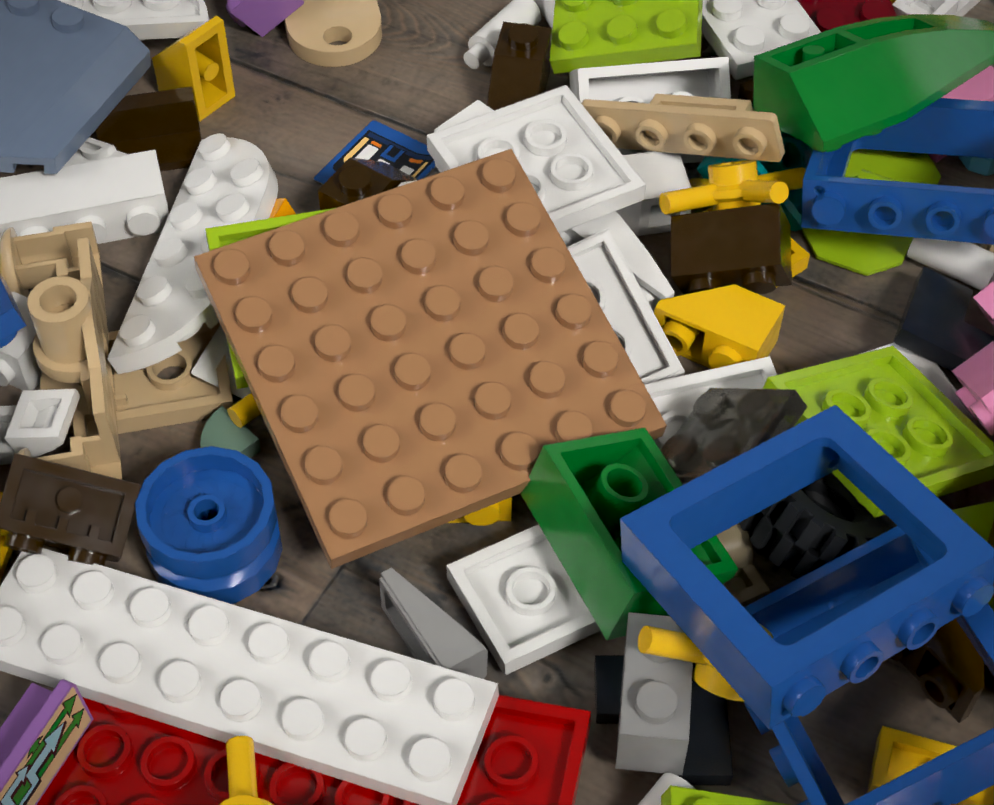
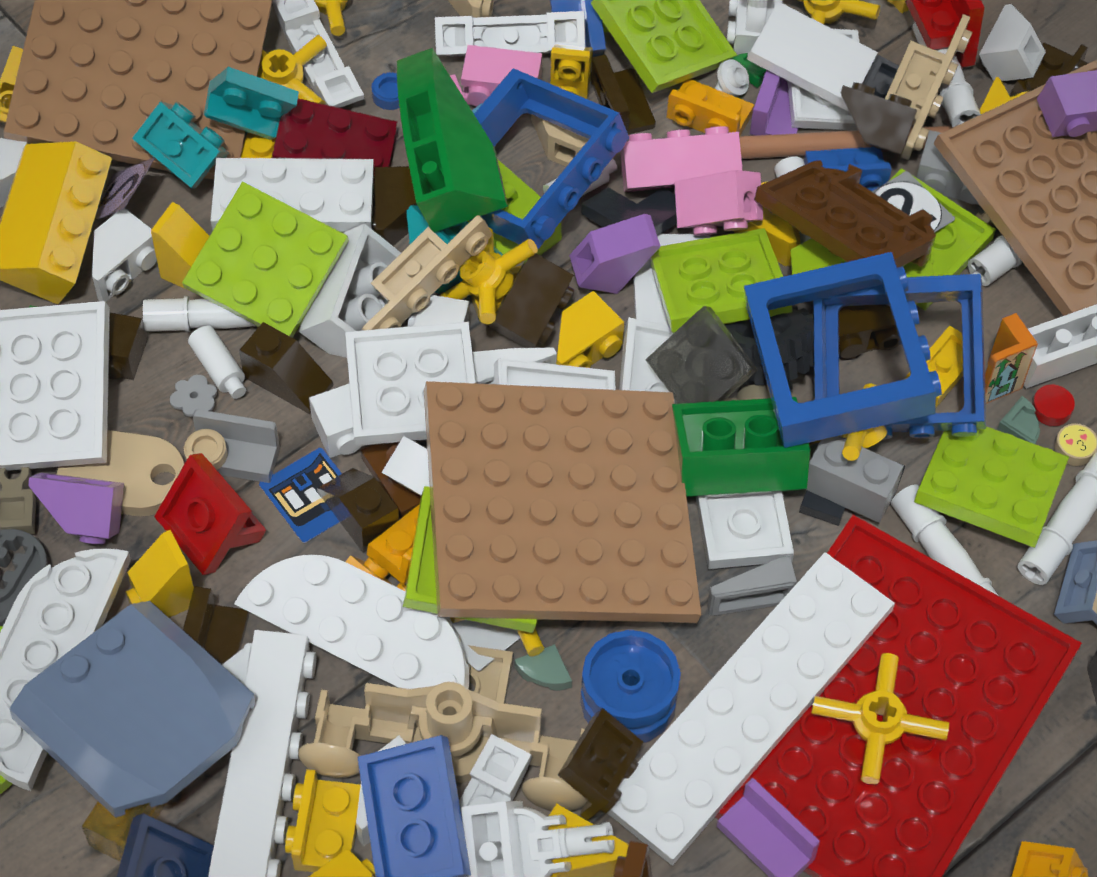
camera: 70 degrees left, 5 degrees up
(302, 82) = (207, 515): none -> red bracket
(377, 52) = (210, 444): none -> tan tile
(397, 80) = (249, 441): none -> light grey panel
(450, 31) = (193, 395): none -> light grey plant
(856, 311) = (614, 254): none -> medium lavender slope

